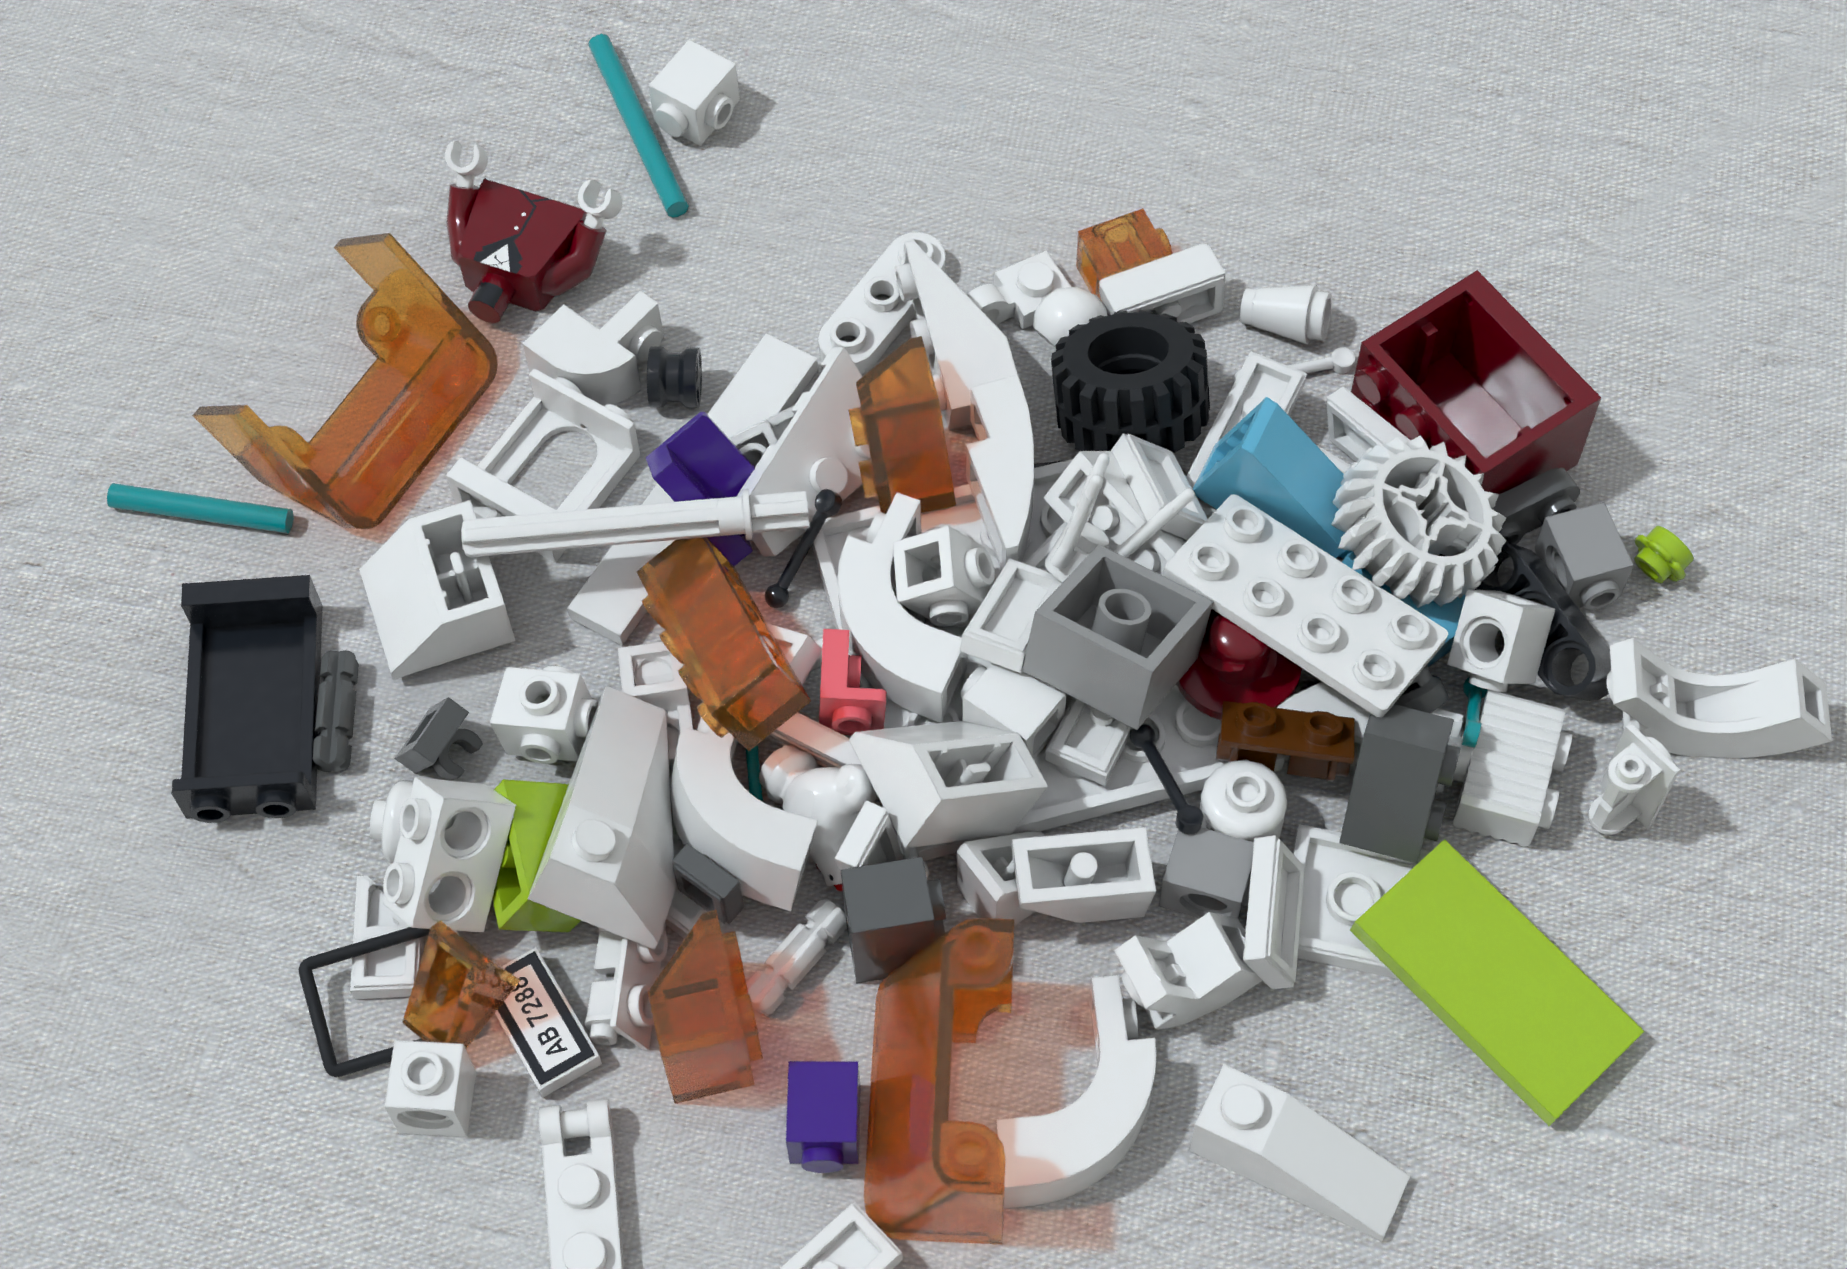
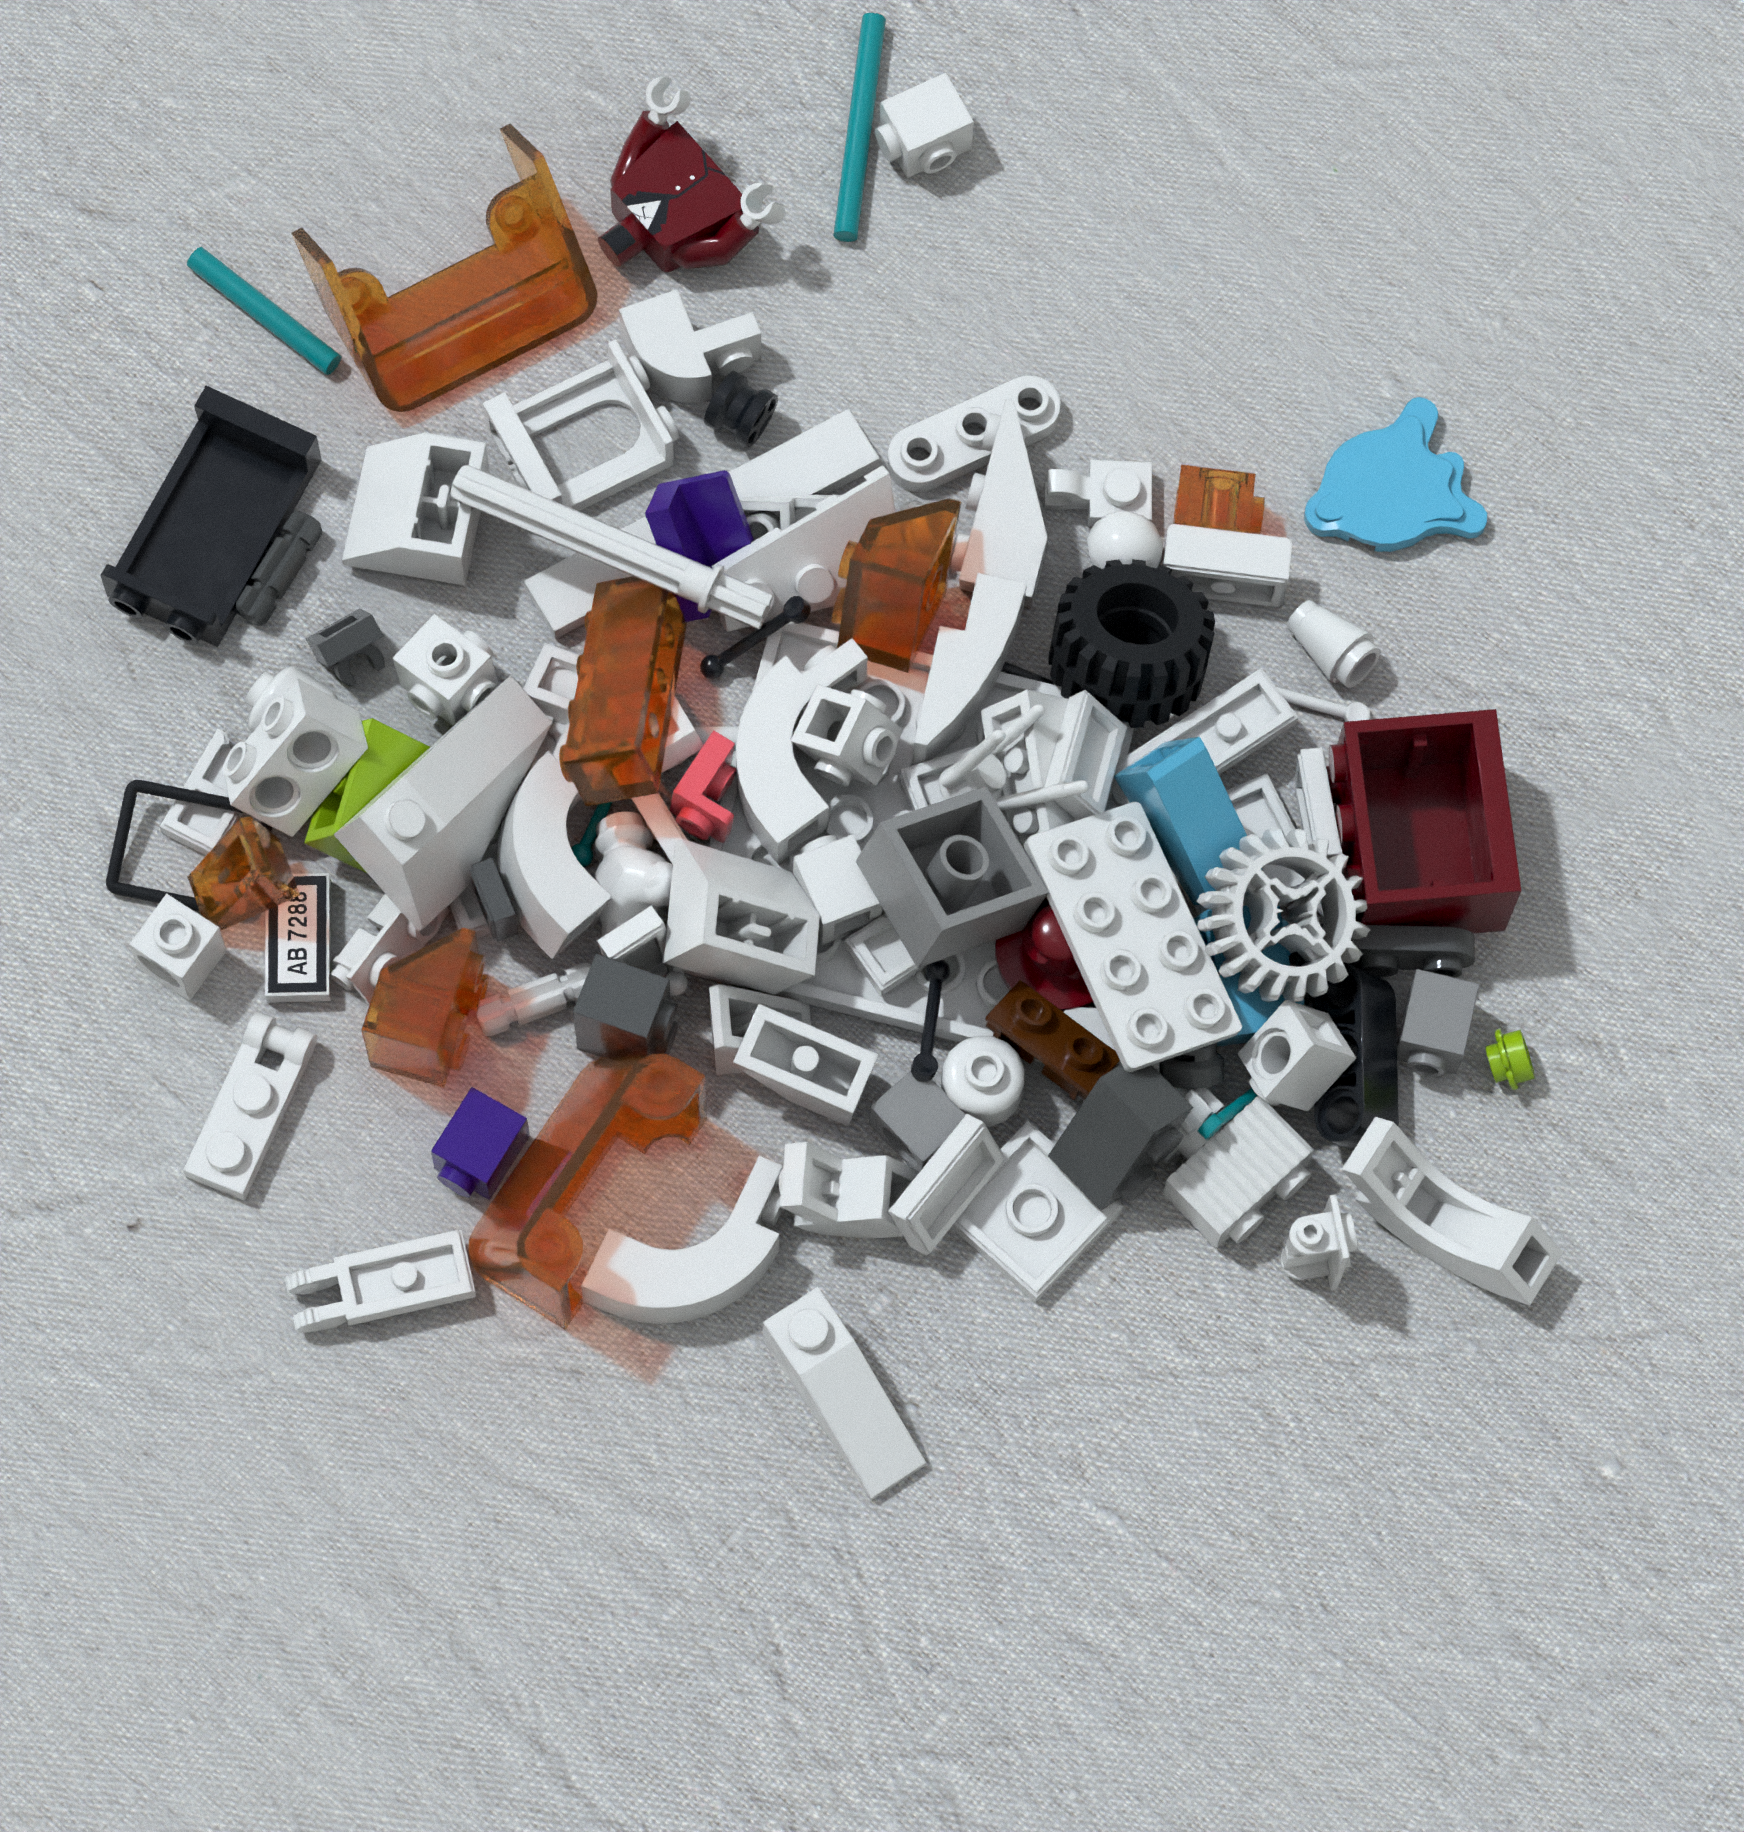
camera: 25 degrees right, 10 degrees up
(1005, 617) = (882, 796): white tile -> none
(1252, 178) = (1393, 489): none -> medium azure tile
(1496, 981) = (1101, 1345): lime tile -> none

